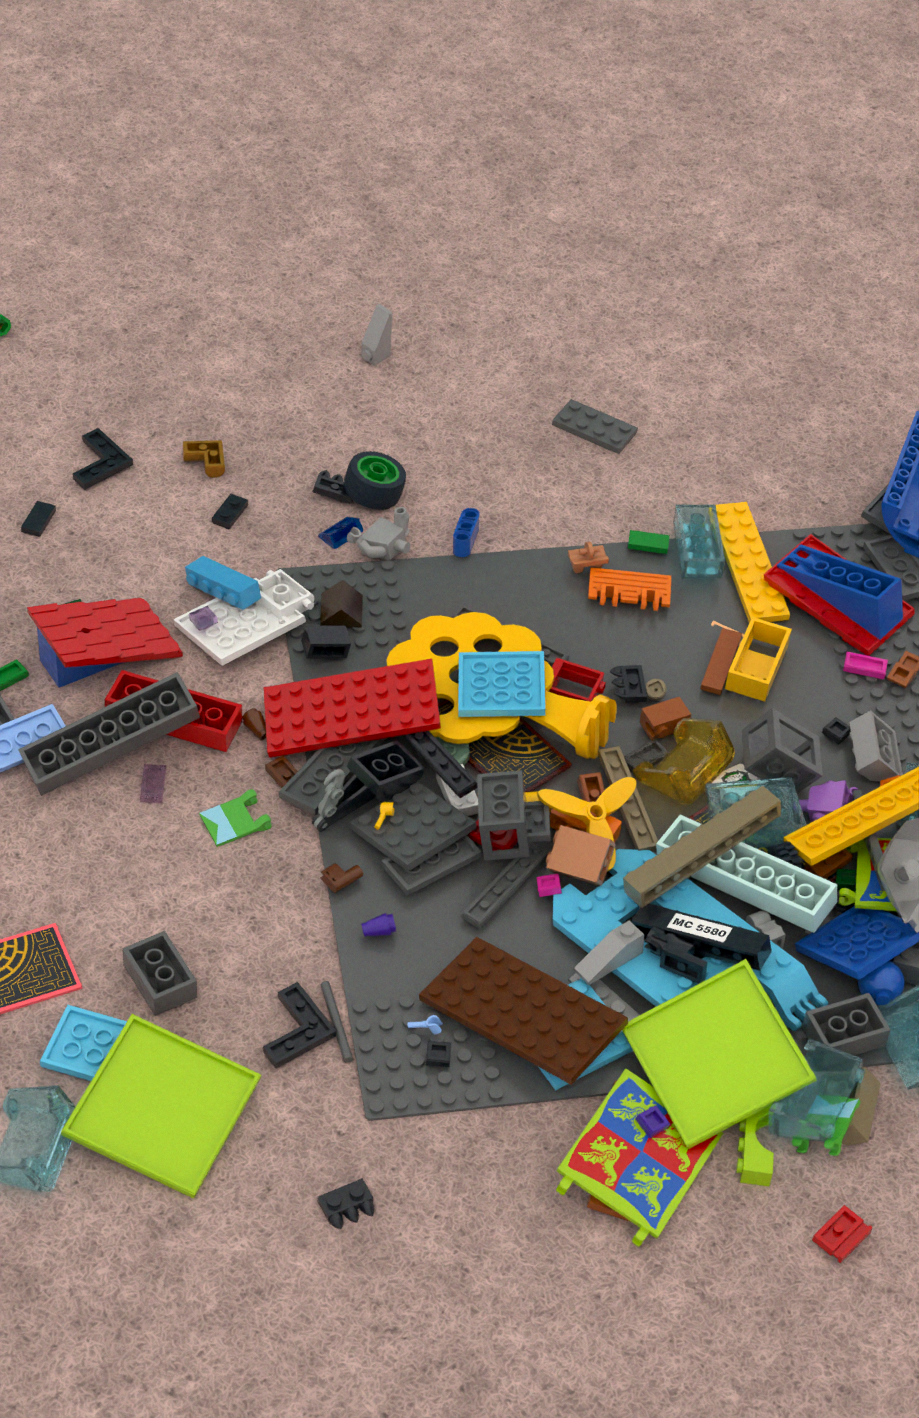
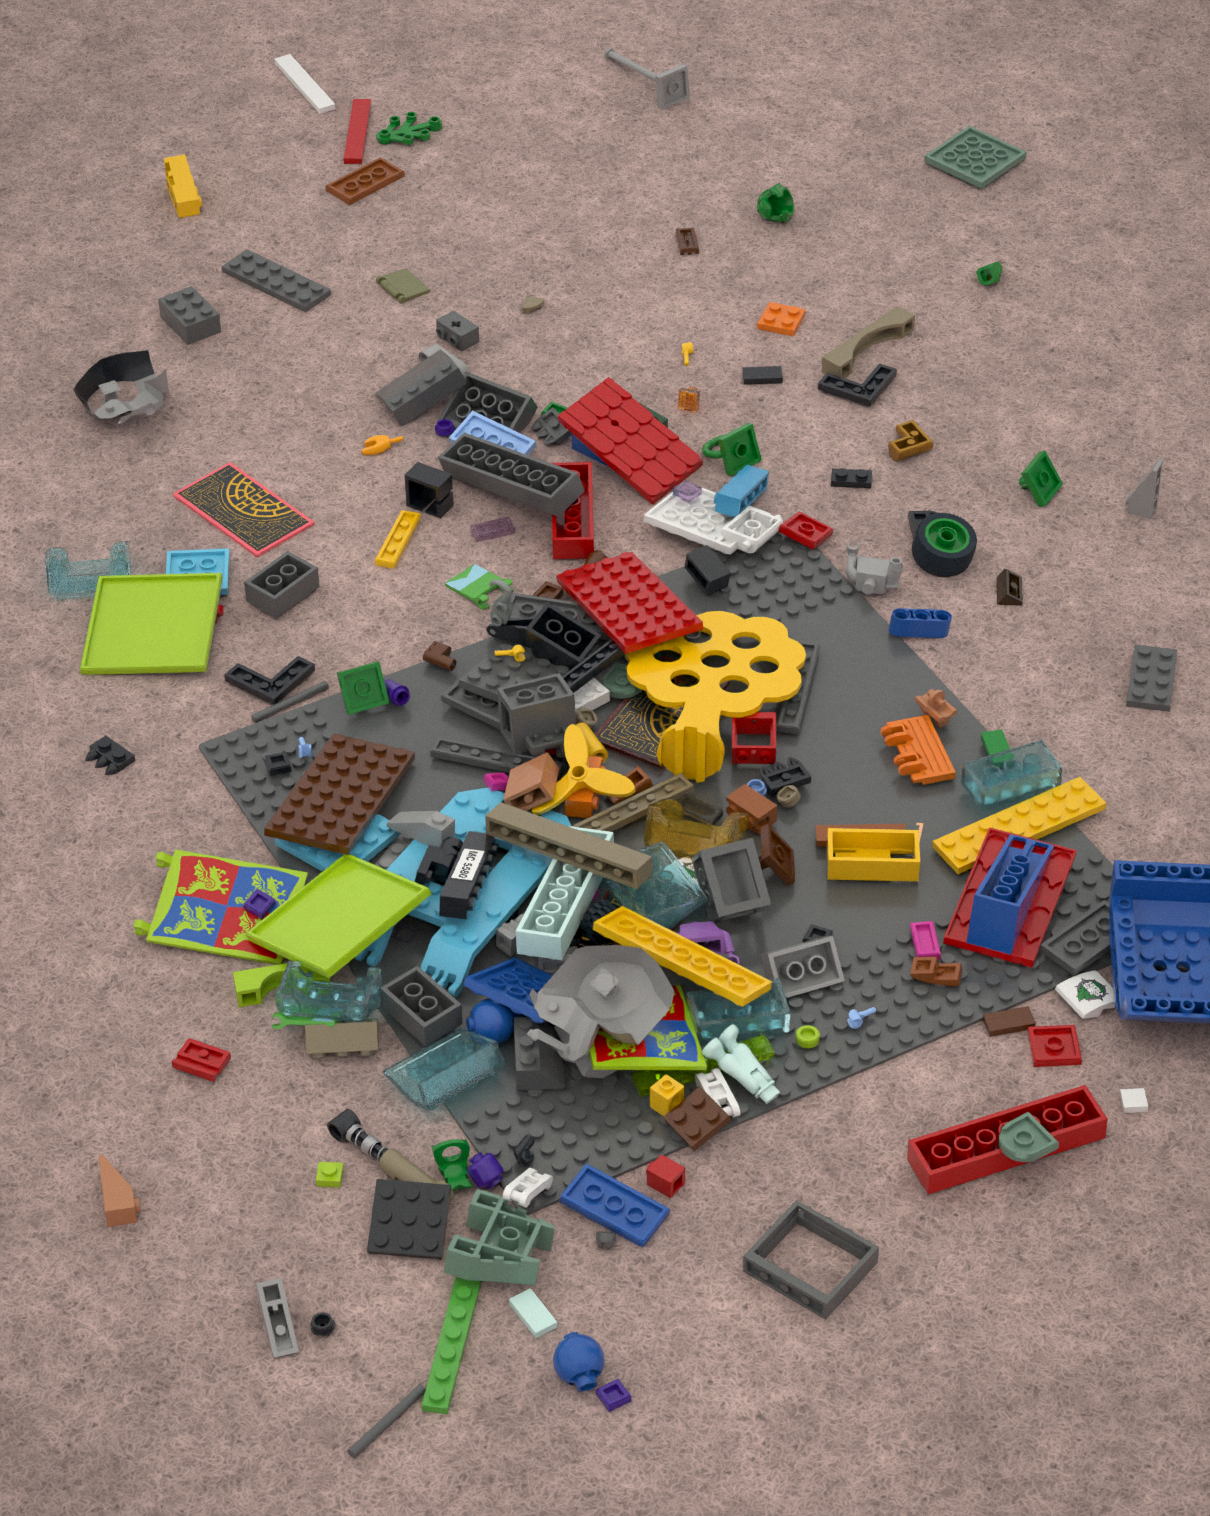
camera: 75 degrees right, 5 degrees down
(25, 687) = (551, 428): none -> dark grey plate
(48, 577) = (689, 399): none -> clear orange tile
(59, 457) = (892, 325): none -> dark tan arch
(87, 801) = (426, 484): none -> black piece
(125, 862) = (397, 539): none -> yellow tile
(156, 566) = (736, 449): none -> green tile
(294, 561) = (806, 530): none -> red tile
(316, 394) = (1041, 478): none -> green tile
(337, 533) = (874, 550): clear blue slope -> none
(341, 606) = (766, 573): dark brown slope -> none
(372, 947) = (363, 687): none -> green tile
(437, 468) = (1009, 588): none -> dark brown slope
(501, 684) = (708, 679): medium azure plate -> none
(634, 708) = (758, 786): none -> medium blue plate
(739, 718) = (777, 855): none -> reddish brown tile

